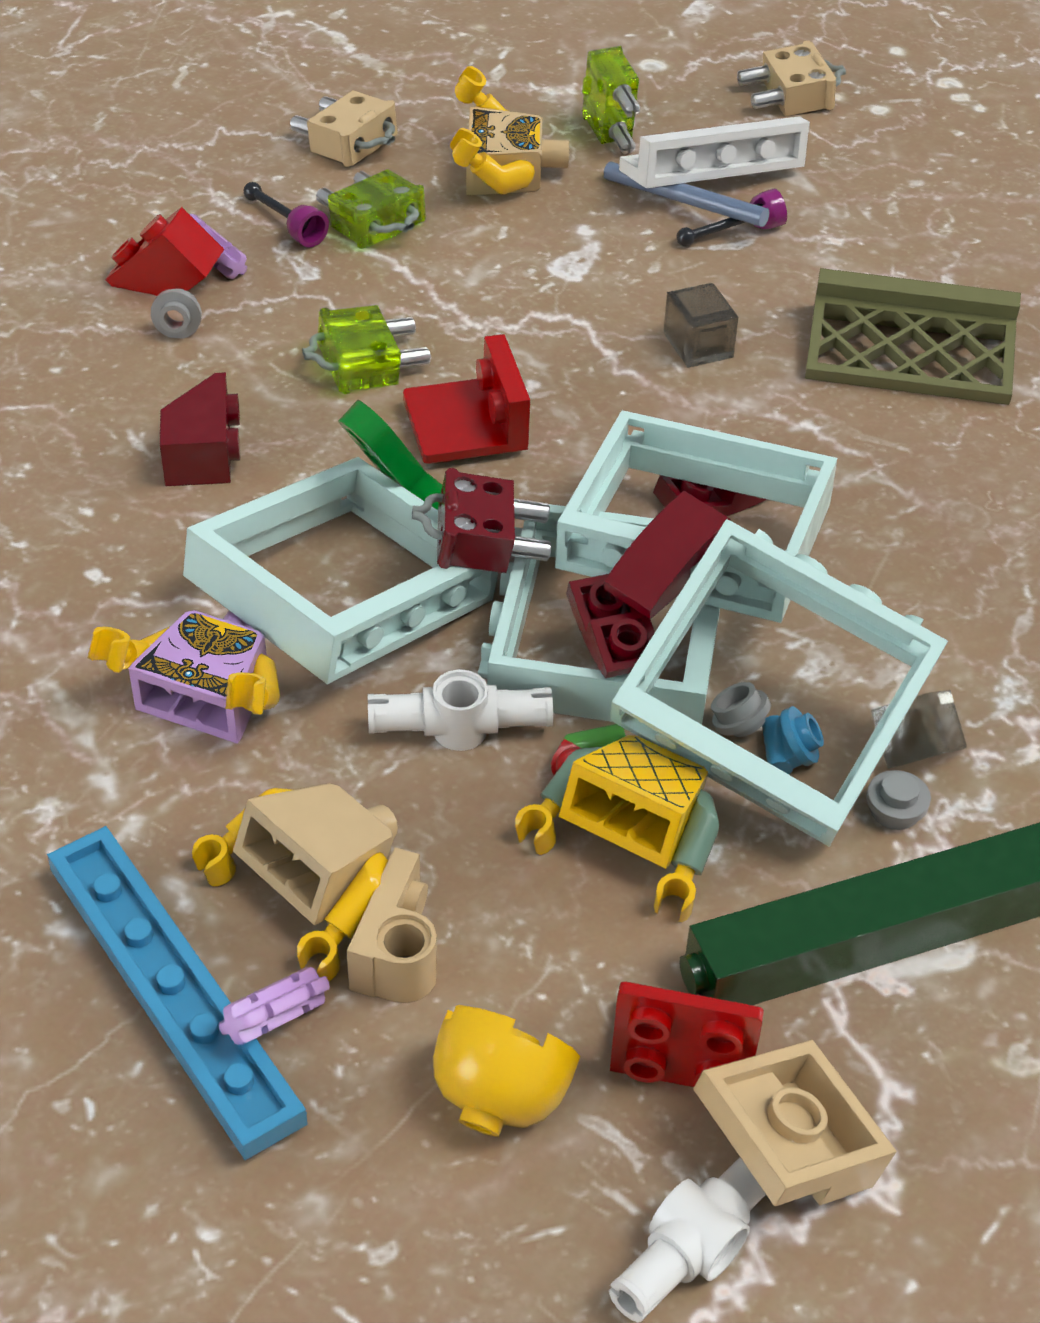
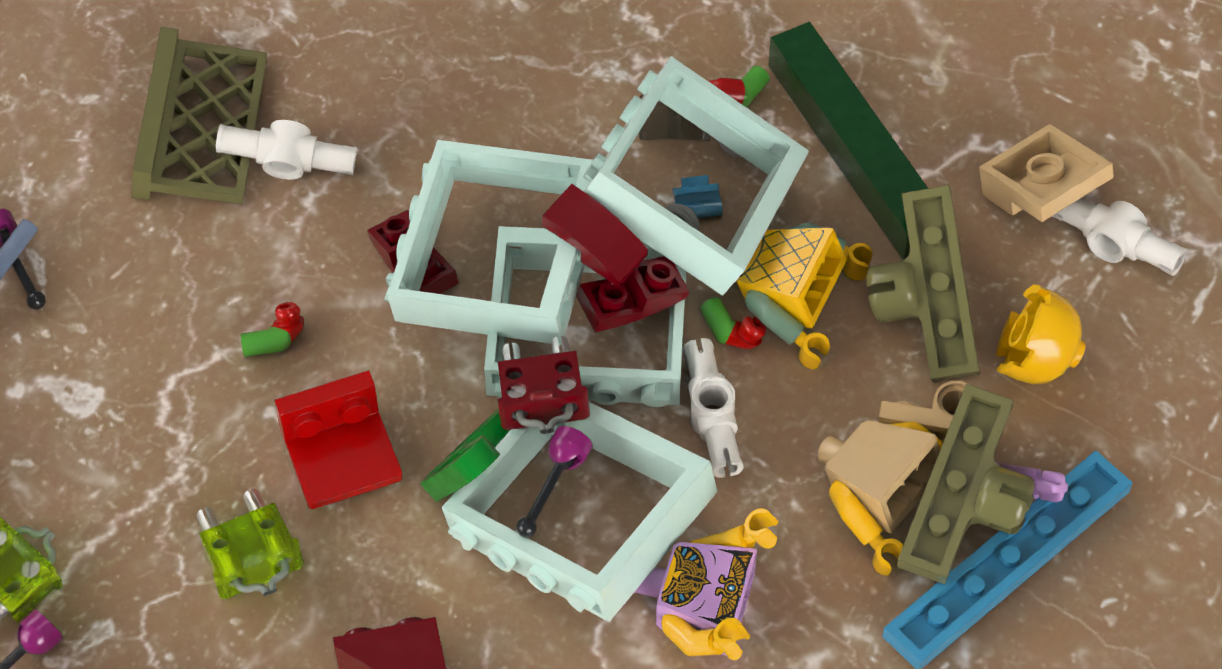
camera: 95 degrees left, 10 degrees up
(260, 914) = (966, 488): none -> olive plate
(385, 529) = (568, 451): none -> hinge
(602, 940) = (930, 285): none -> olive plate
(630, 390) = (278, 336): none -> arm
(679, 1034) = (990, 240): red bracket -> none
(700, 324) = (197, 272): clear smoke panel -> none
(863, 394) = (286, 149): none -> white pin
(970, 803) = (744, 89): none -> arm

